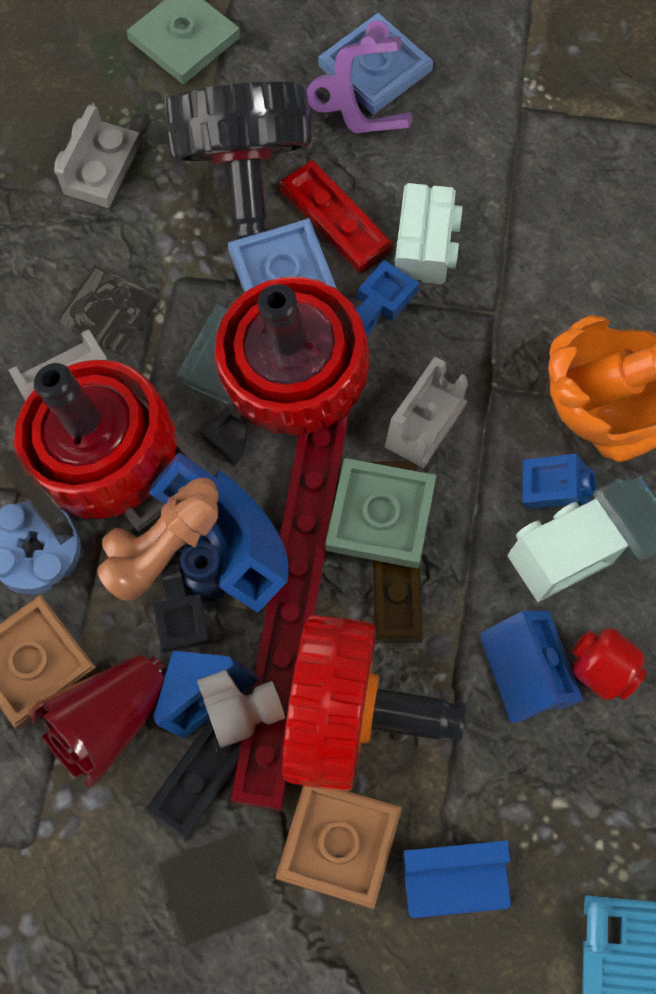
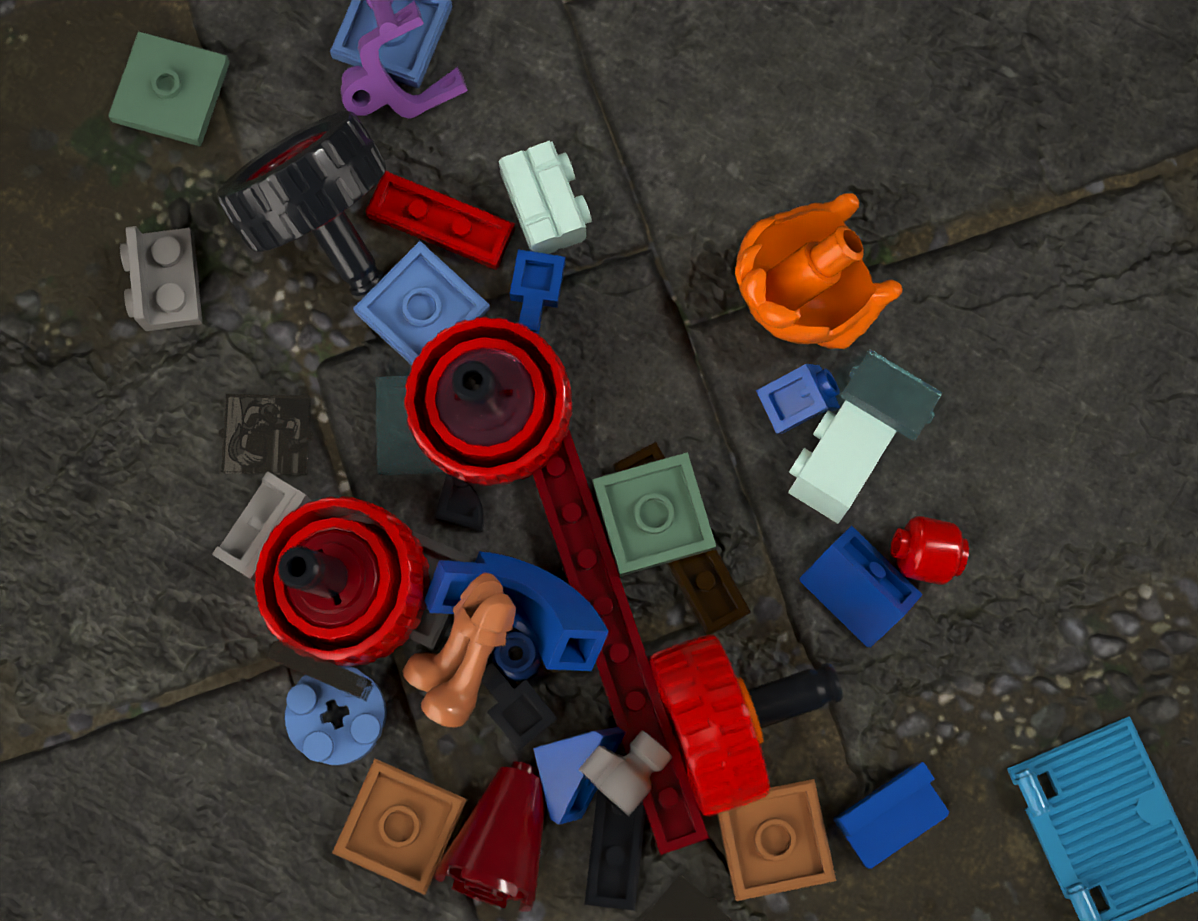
camera: 30 degrees left, 10 degrees up
(426, 414) = (645, 392): light grey hinge -> none

